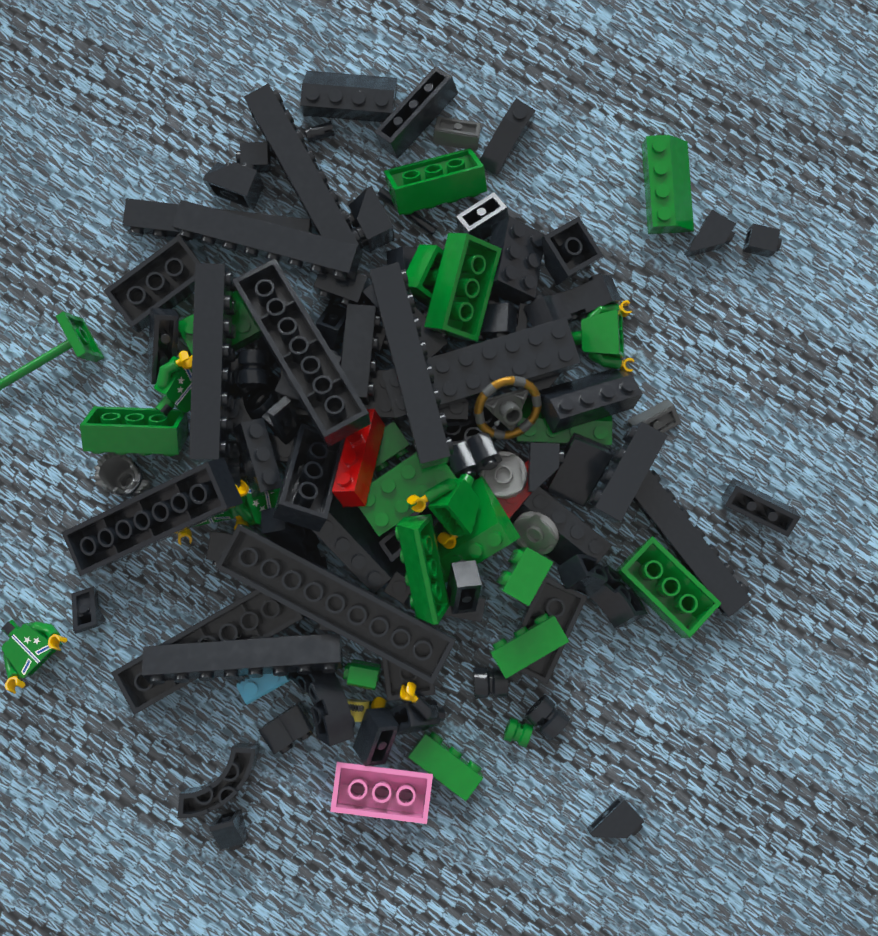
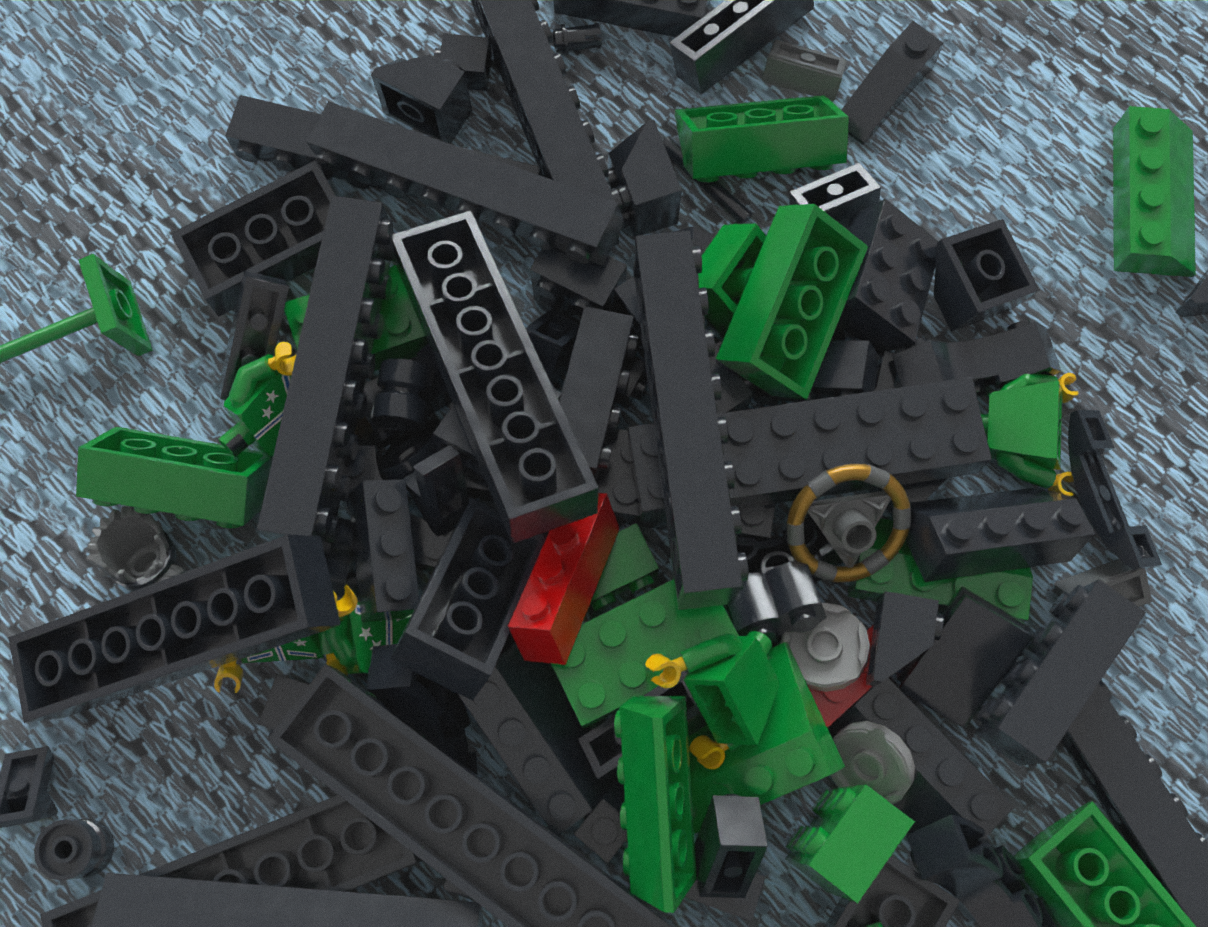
camera: 10 degrees right, 10 degrees down
(120, 637) = (85, 847): none -> black wheel
(646, 367) = (1086, 443): none -> black slope

